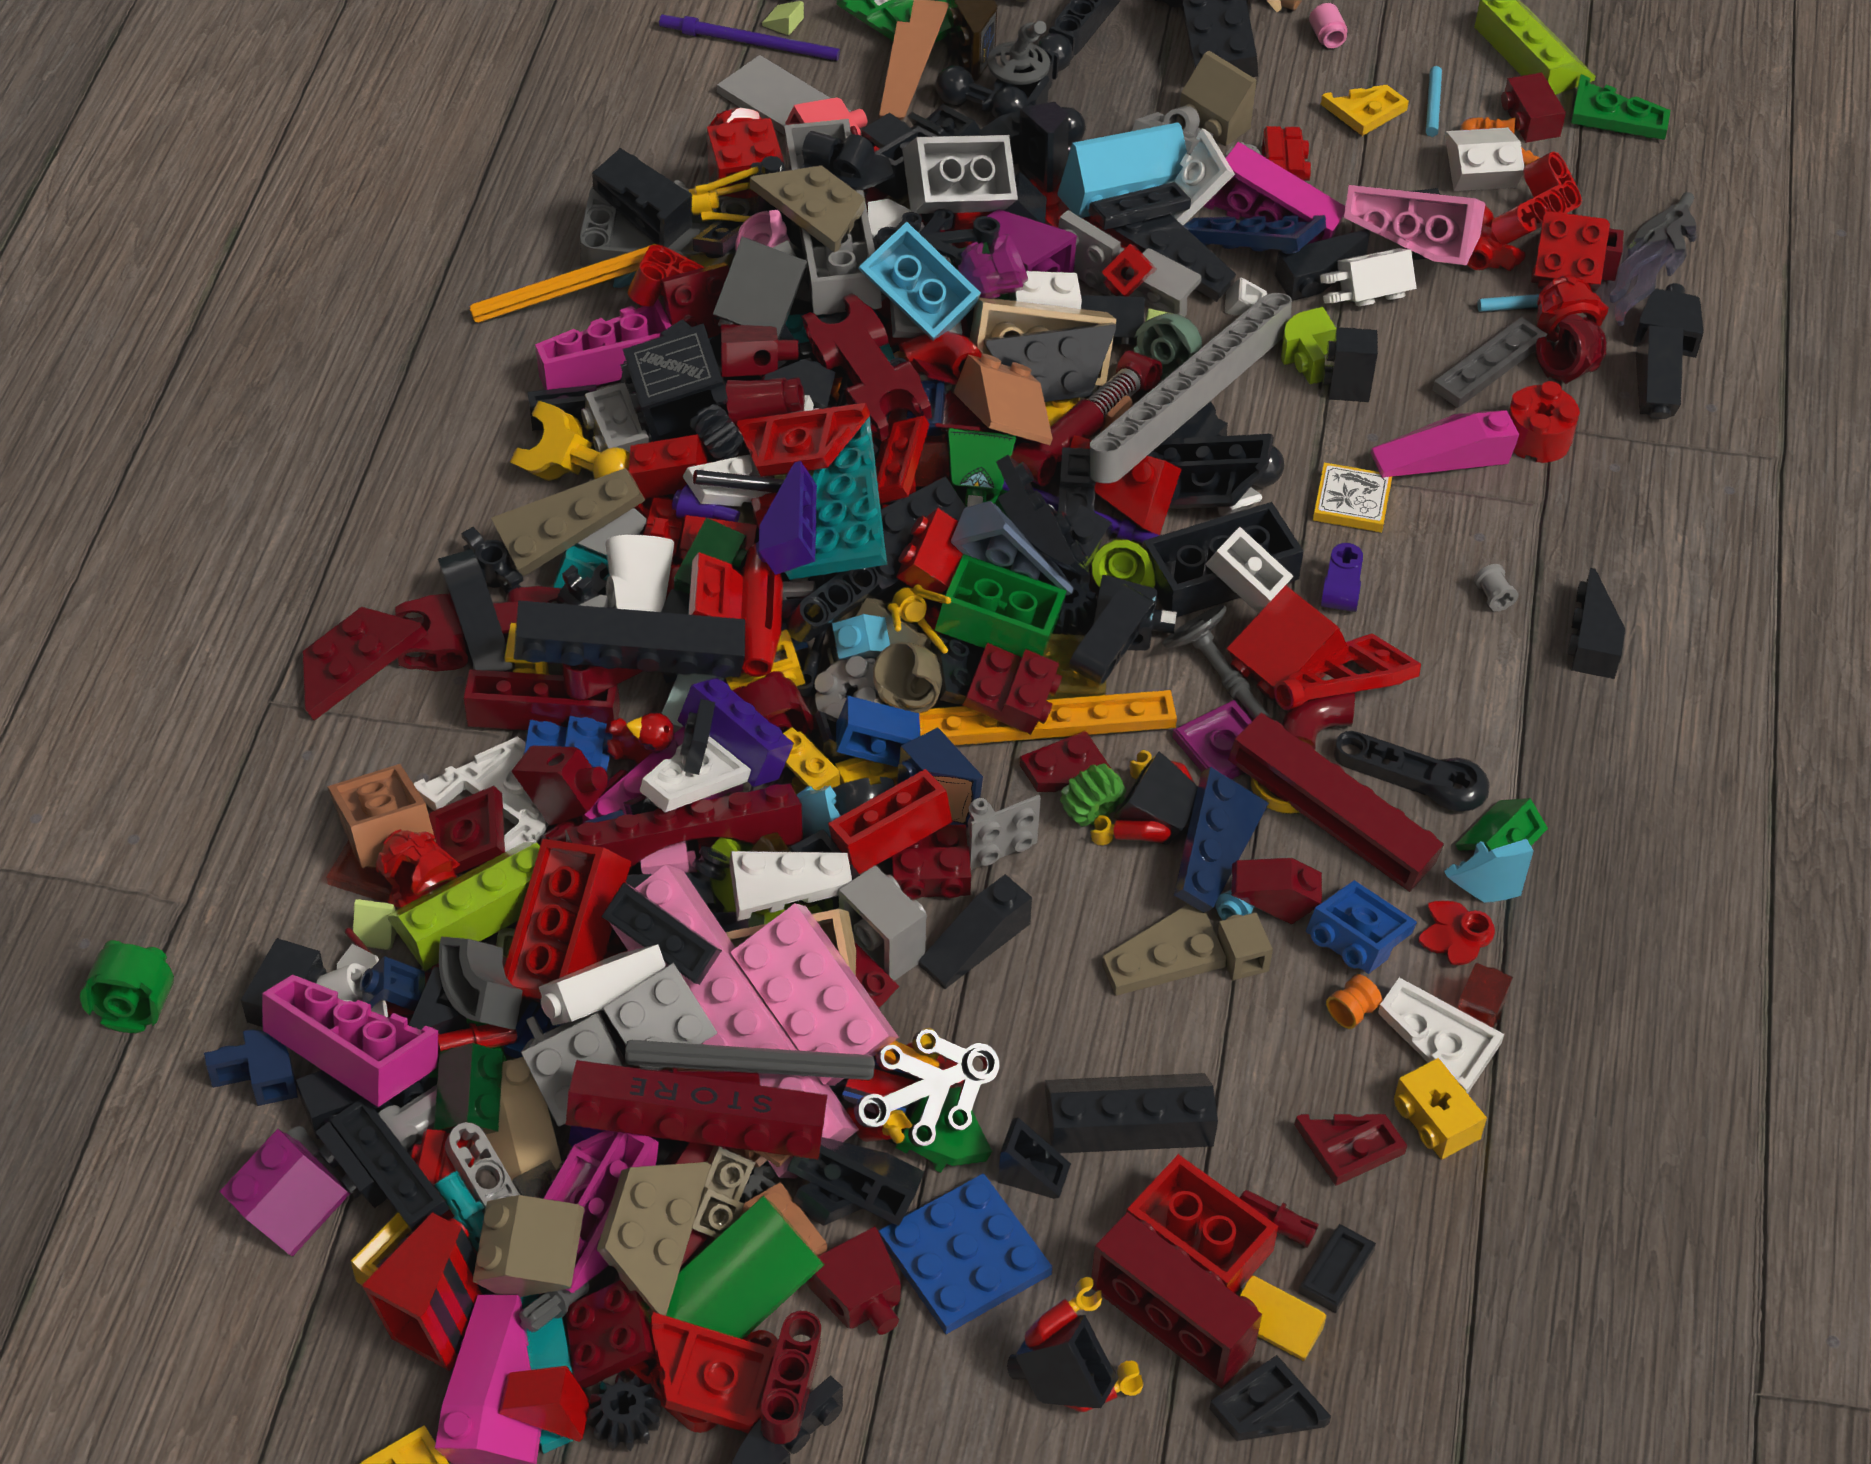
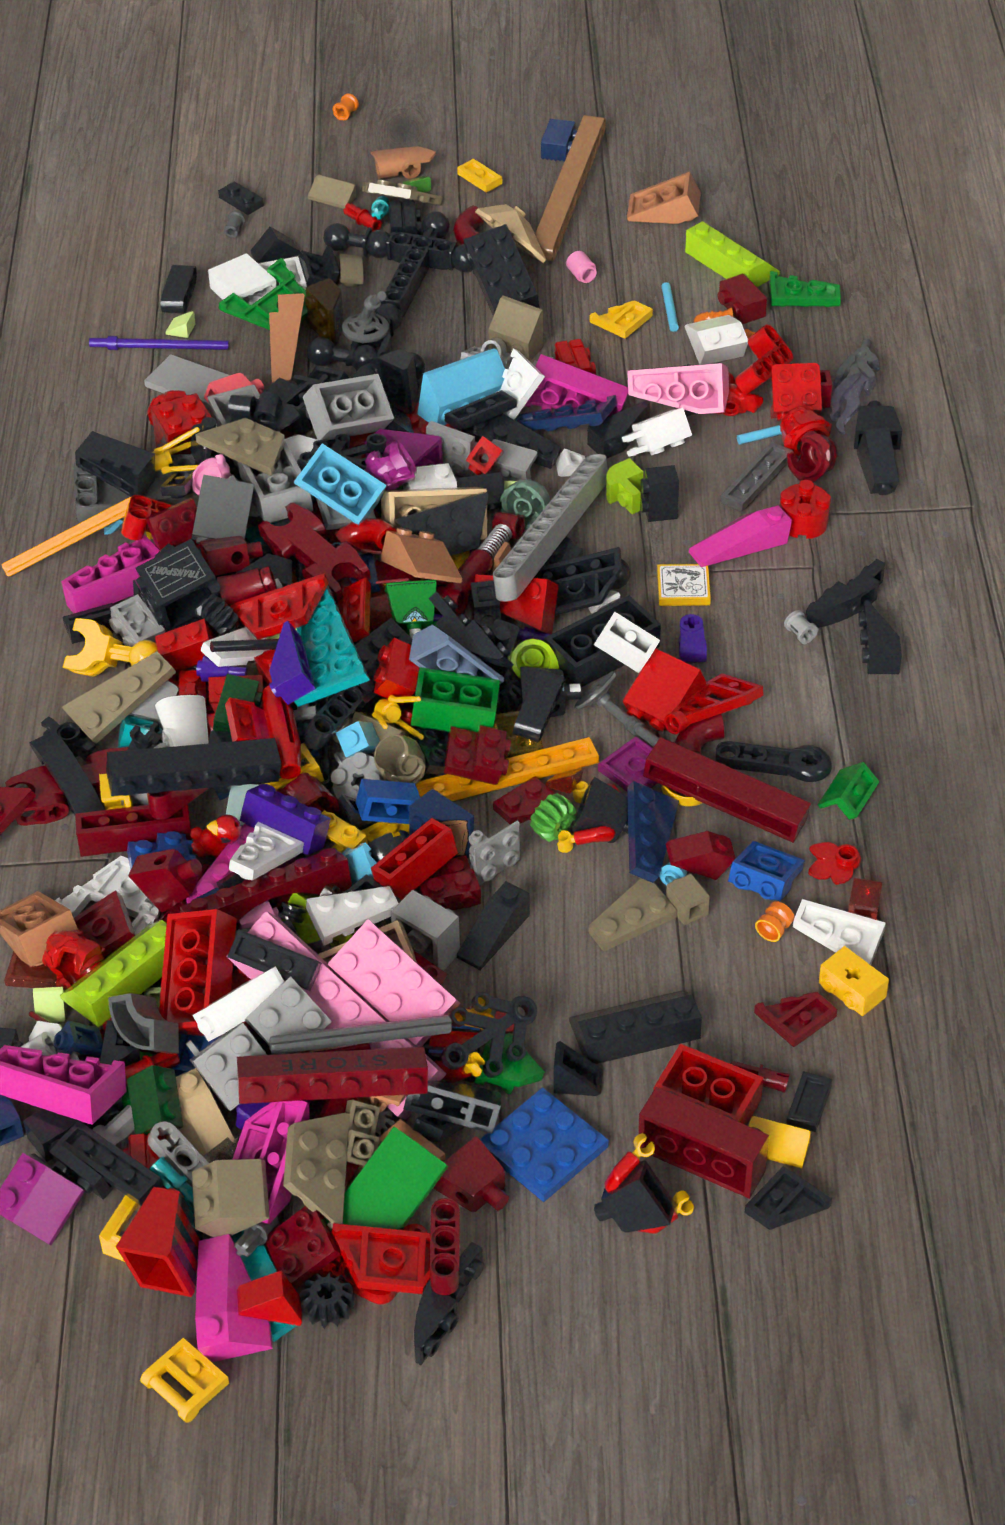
camera: 10 degrees left, 5 degrees down
(697, 736) = (261, 824): black plate -> none
(1124, 746) = (565, 781): none -> clear red slope
(1494, 873) = (851, 816): medium azure slope -> none
(1569, 561) = (847, 600): none -> black slope

